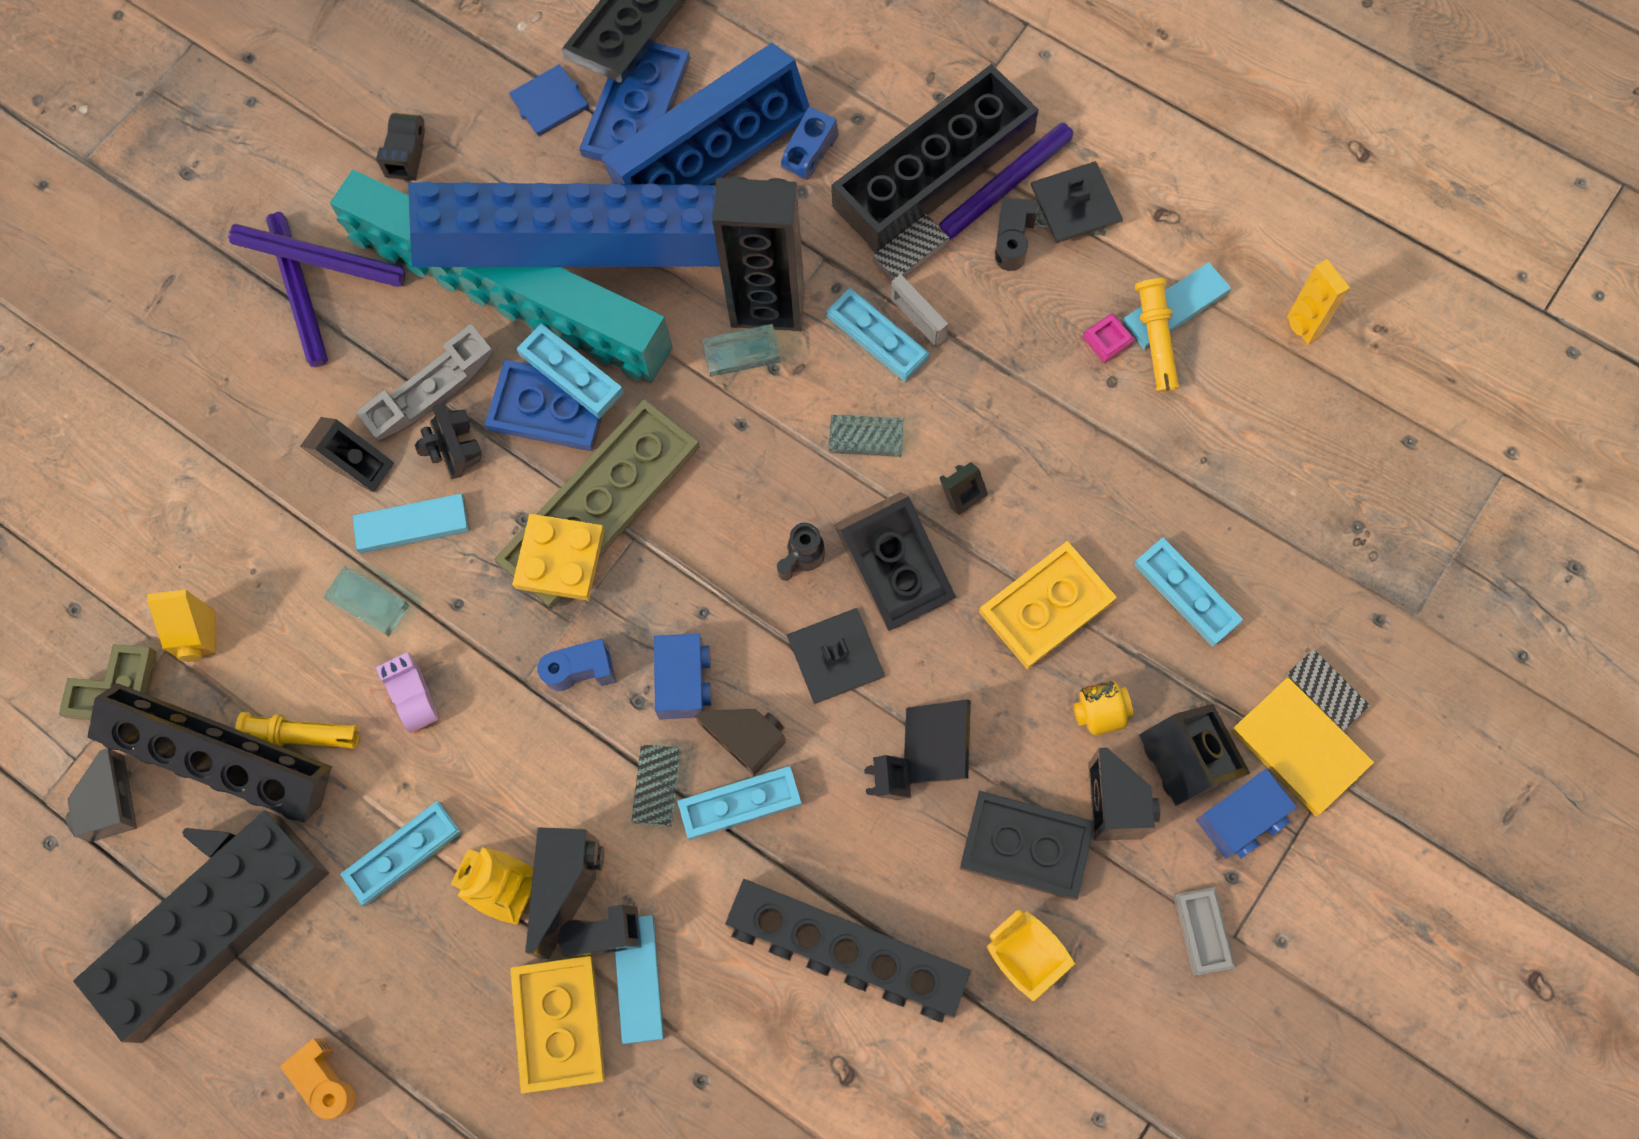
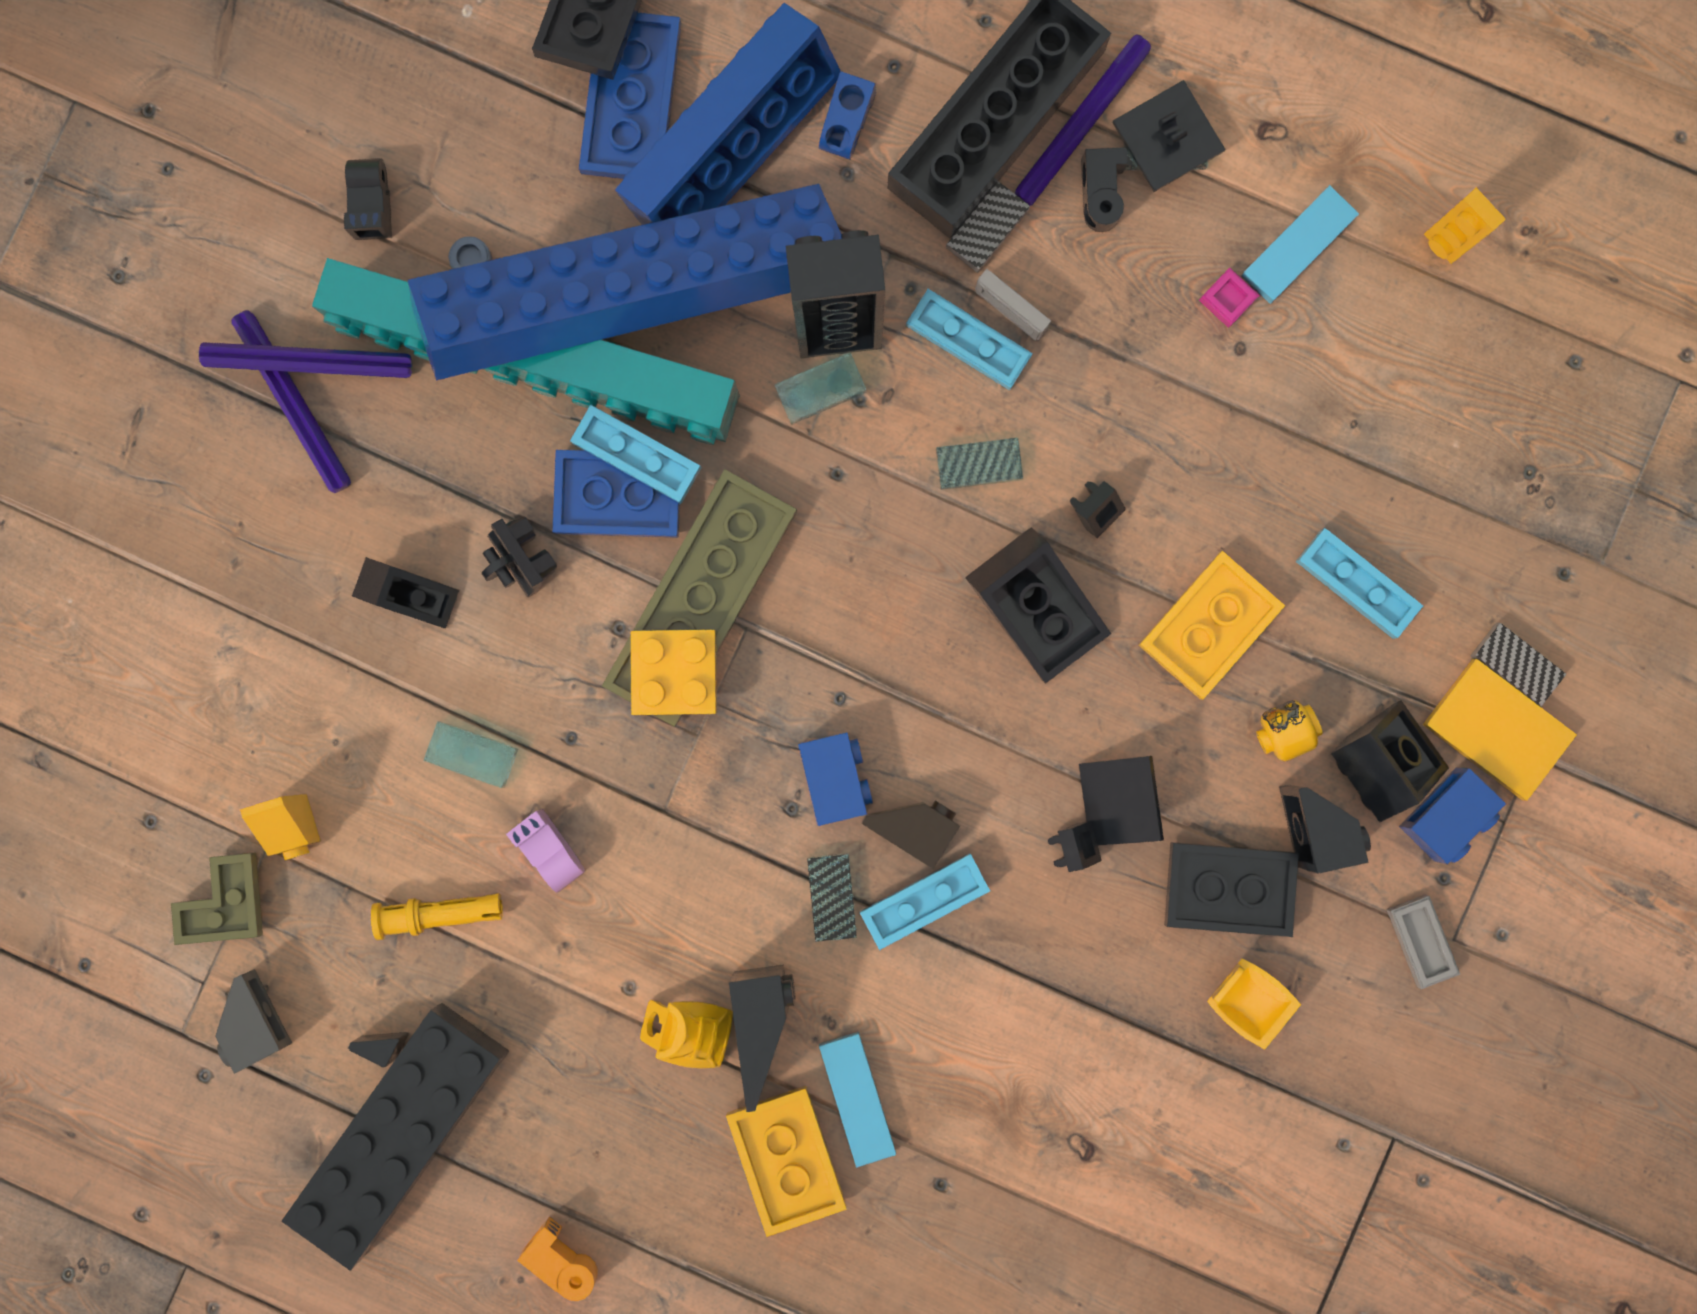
camera: 10 degrees left, 15 degrees up
(209, 752) = (350, 958): black brick -> none
(401, 853) = (580, 1017): medium azure tile -> none
(410, 523) = (496, 658): medium azure tile -> none
(429, 387) = (475, 495): light grey slope -> none
(548, 100) = (524, 106): blue piece -> none
(577, 663) = (705, 791): blue leg -> none
(603, 936) = (806, 1072): black leg -> none
(756, 900) = (1174, 1041): black brick -> none
(805, 551) = (937, 612): black piece -> none
(835, 656) = (992, 720): black piece -> none
(1156, 317) = (1282, 269): yellow pin -> none

